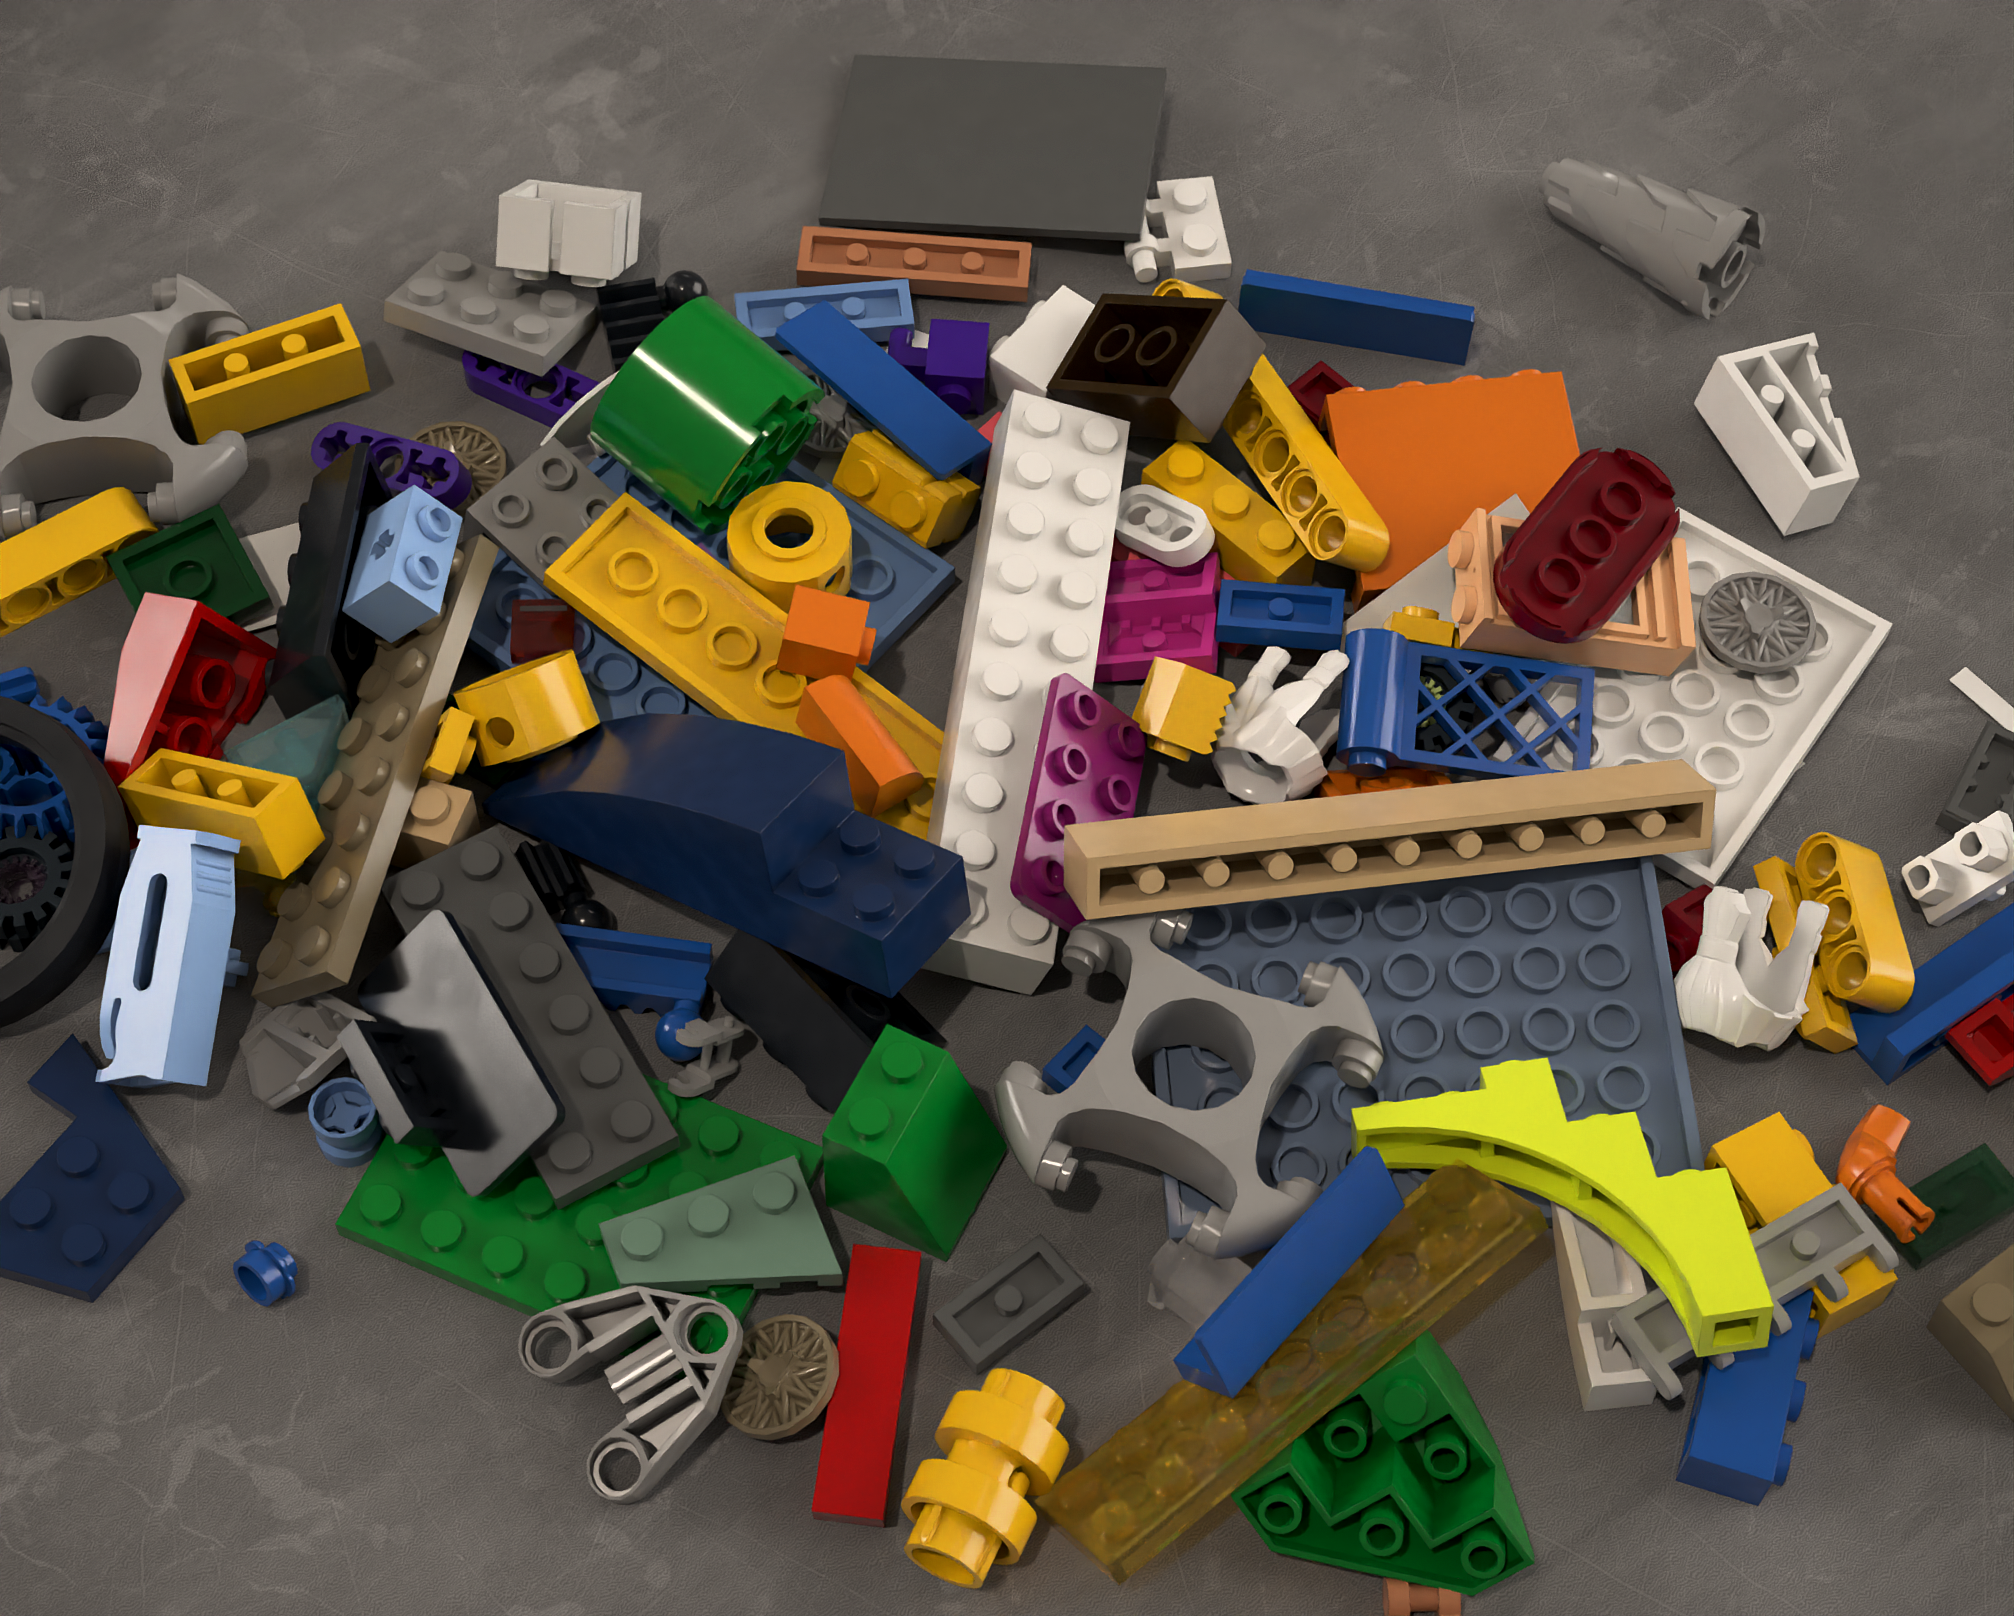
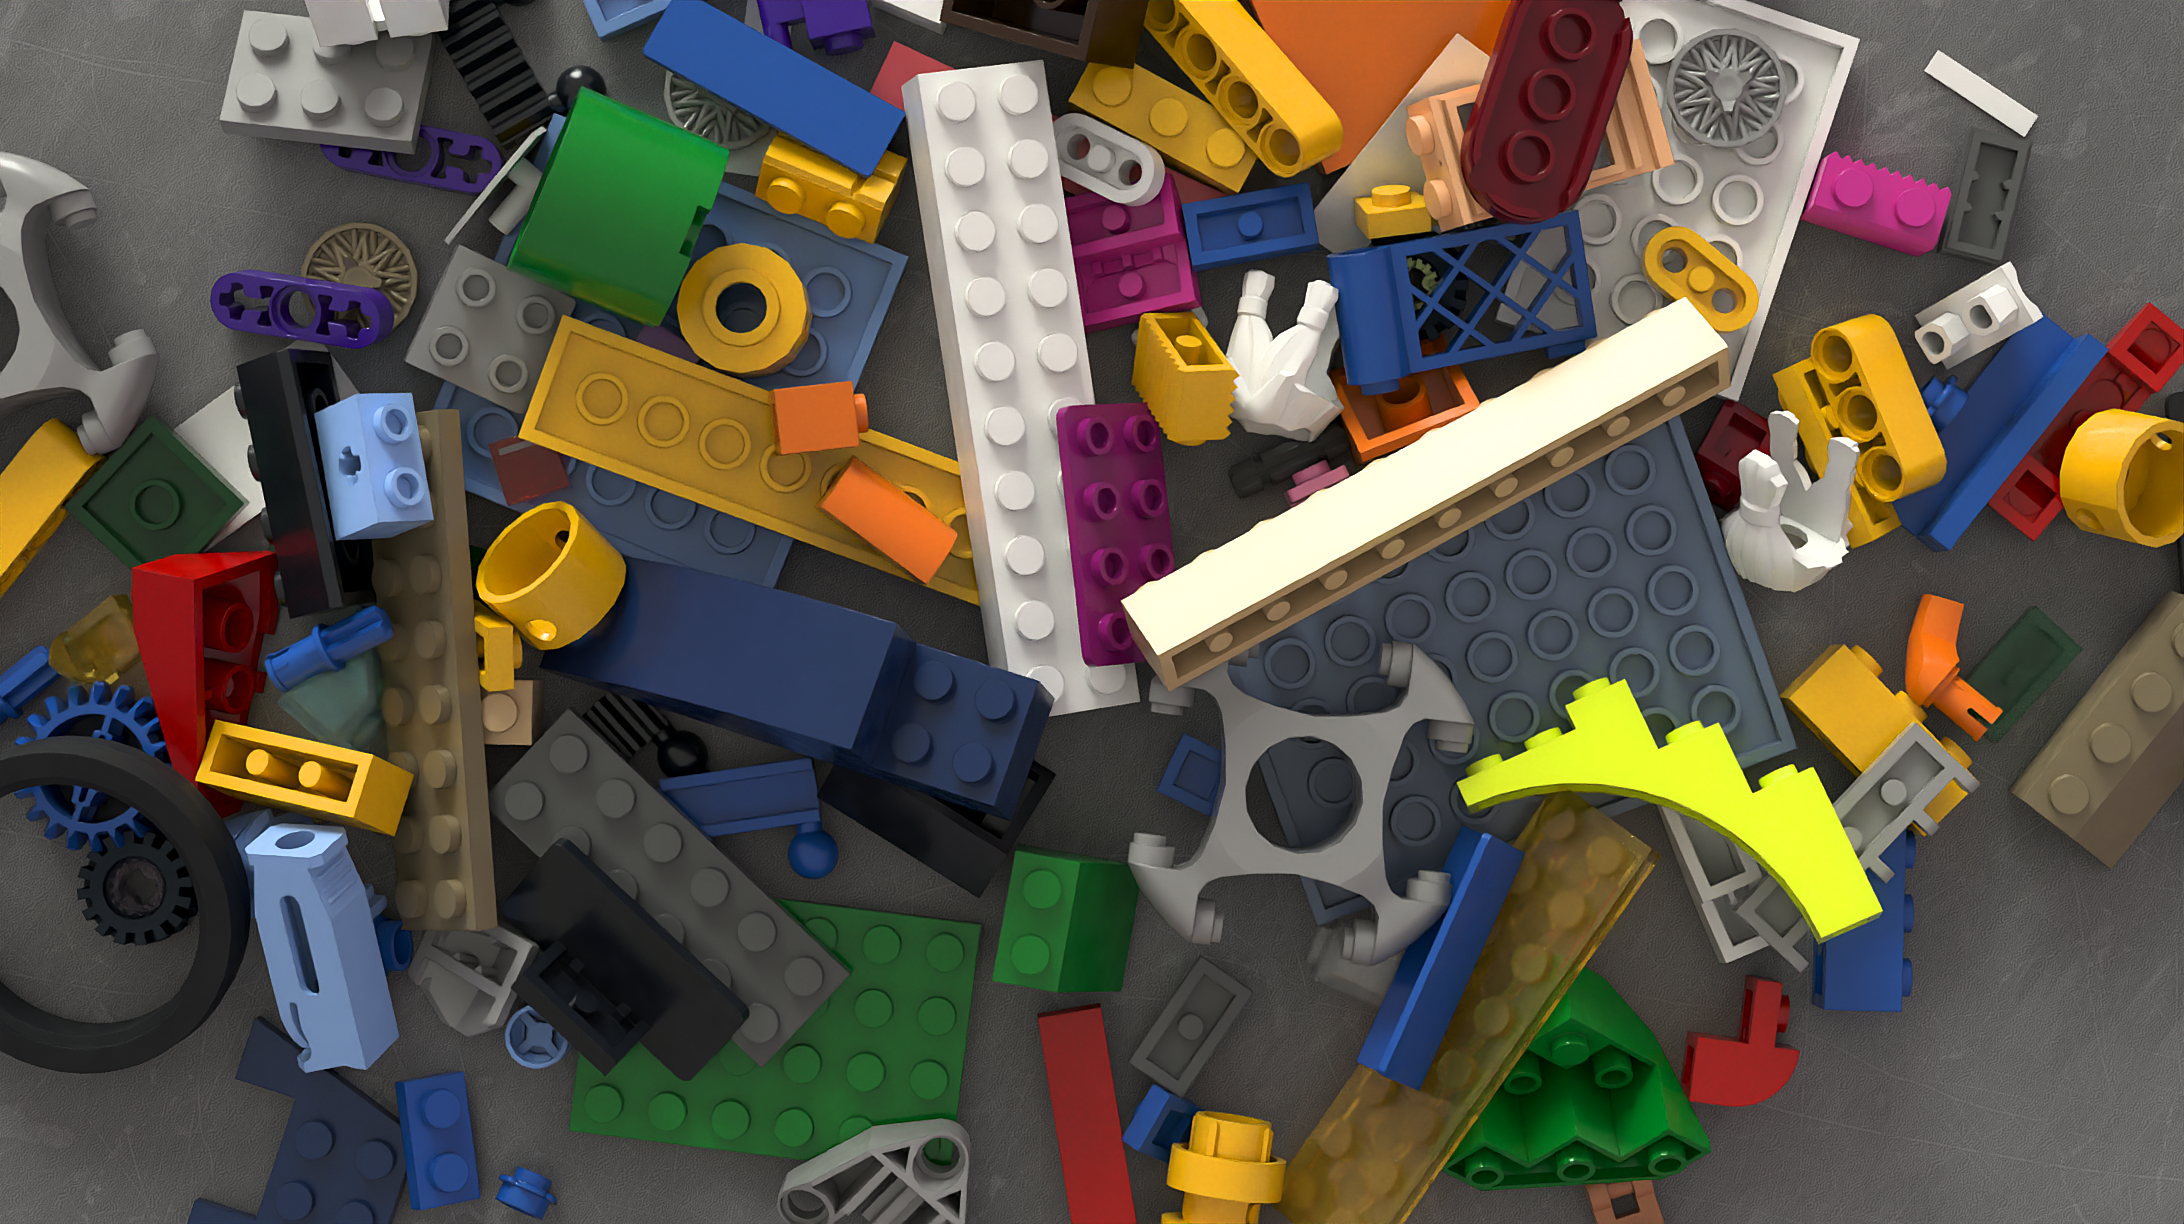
camera: 15 degrees left, 30 degrees up
(82, 677) = (98, 645): none -> clear yellow plate
(200, 1195) = (437, 1140): none -> blue plate
(237, 1006) = (393, 943): none -> blue plate
(271, 374) = (136, 241): yellow brick -> none
(295, 708) = (328, 648): none -> blue axle
(703, 1073) = (849, 866): light grey piece -> none
(732, 1232) = (924, 1050): sand green wing -> none
(781, 1377) = (1014, 1158): dark tan wheel -> none
(940, 1377) = (1160, 1122): none -> blue plate
(1585, 1505) = (1746, 1067): none -> red brick
(1705, 753) = (1702, 275): none -> yellow plate
(1882, 755) = (1876, 205): none -> dark pink brick
(1922, 939) = (1943, 400): none -> blue plate

